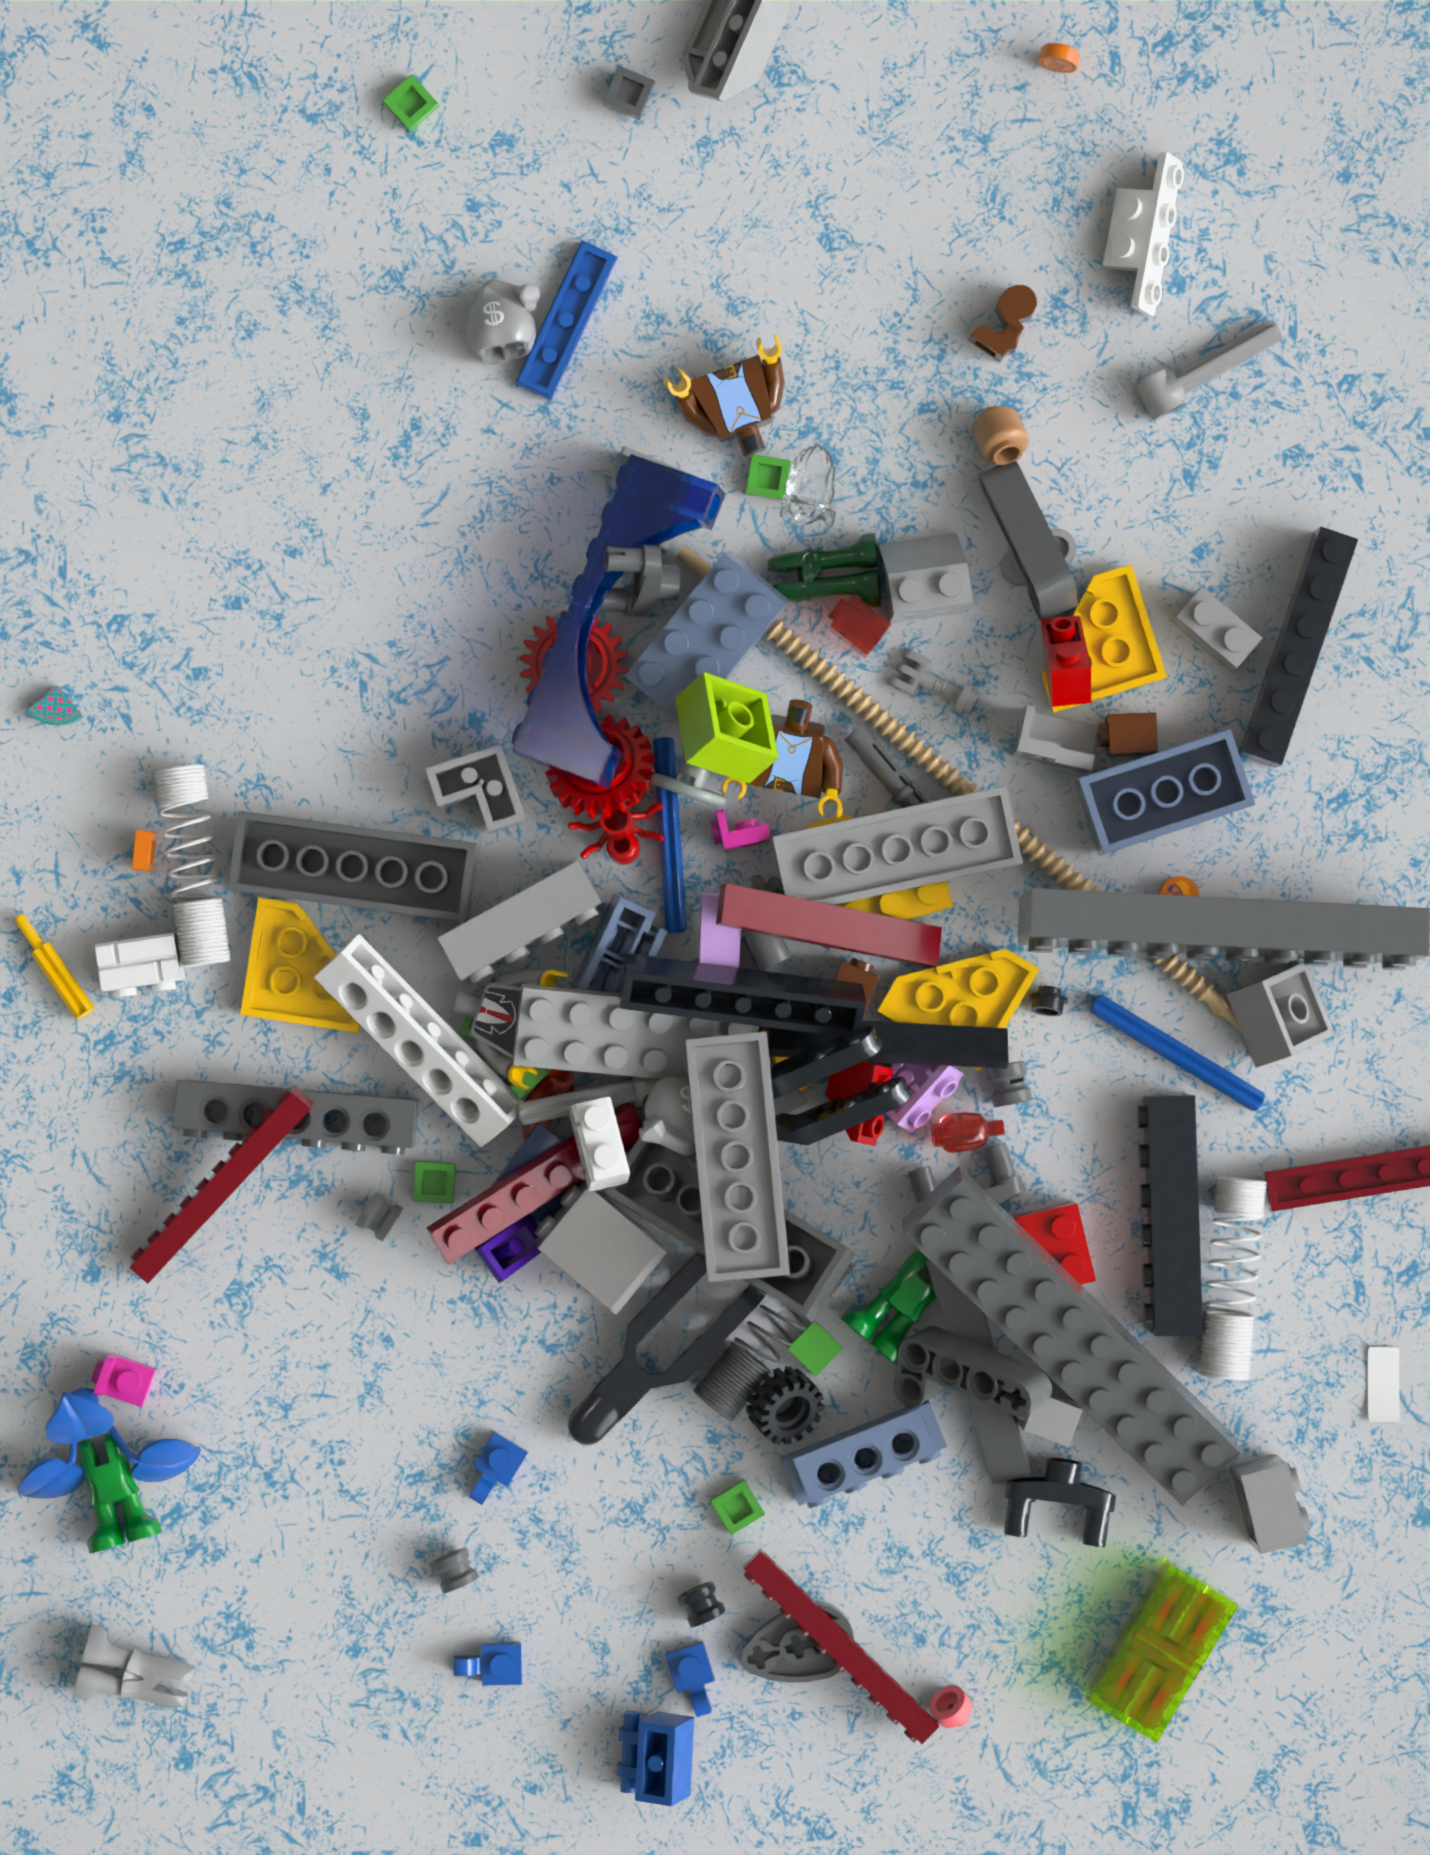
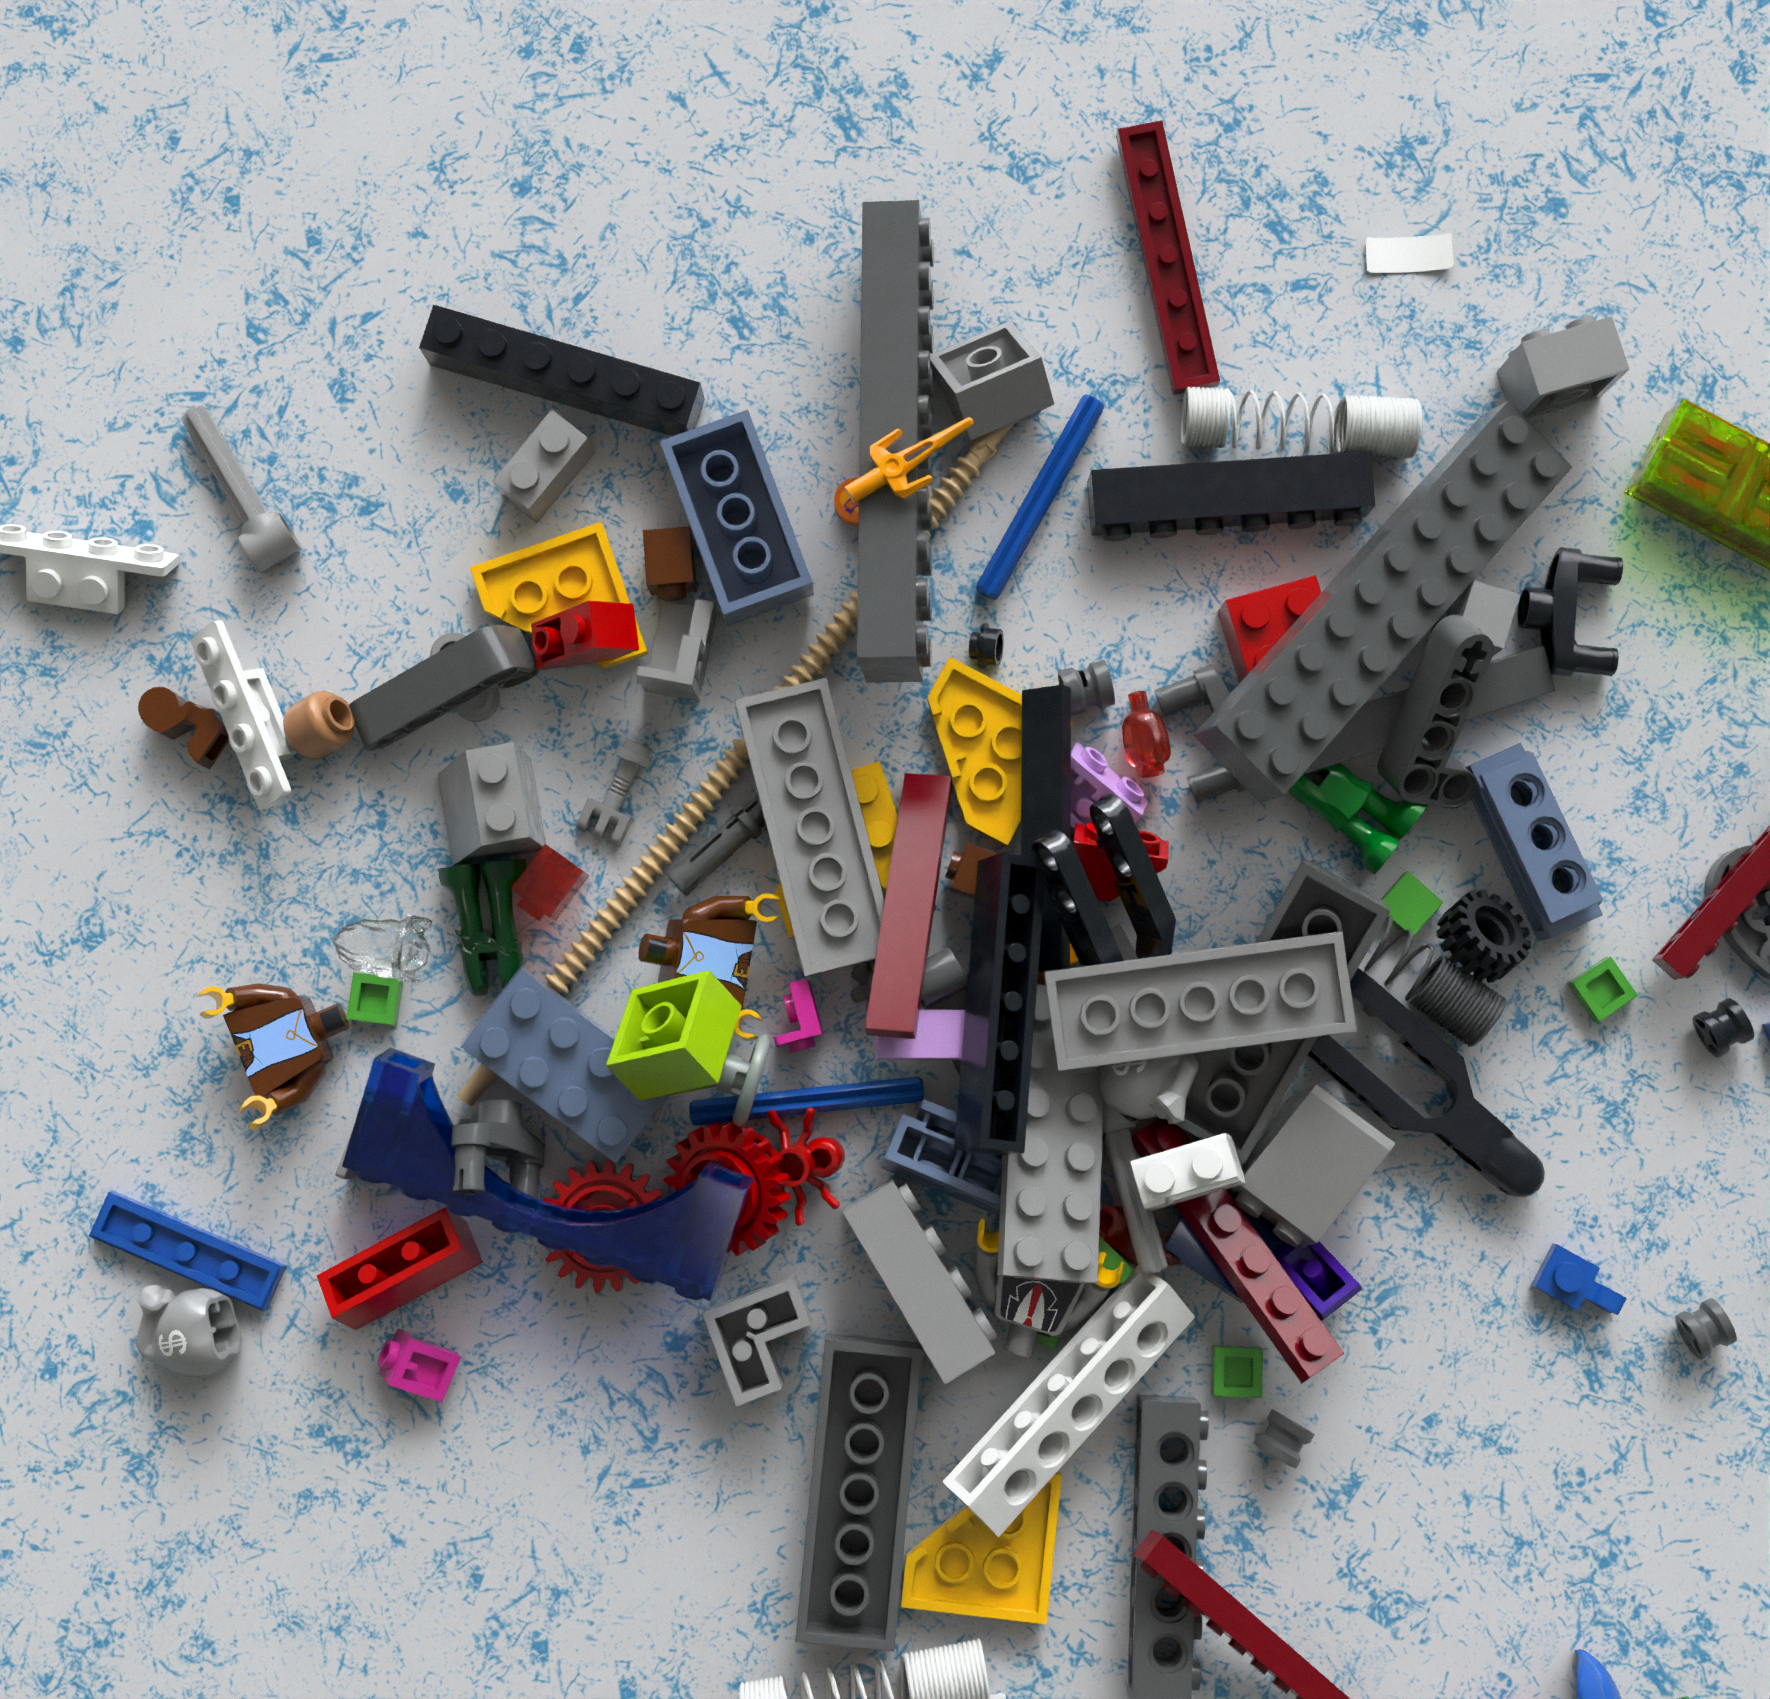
camera: 90 degrees left, 5 degrees down
(466, 508) = (417, 1365): none -> dark pink bracket
(545, 496) = (399, 1269): none -> red brick
(1009, 376) = (248, 714): none -> white bracket
(1192, 923) = (893, 468): none -> light orange piece

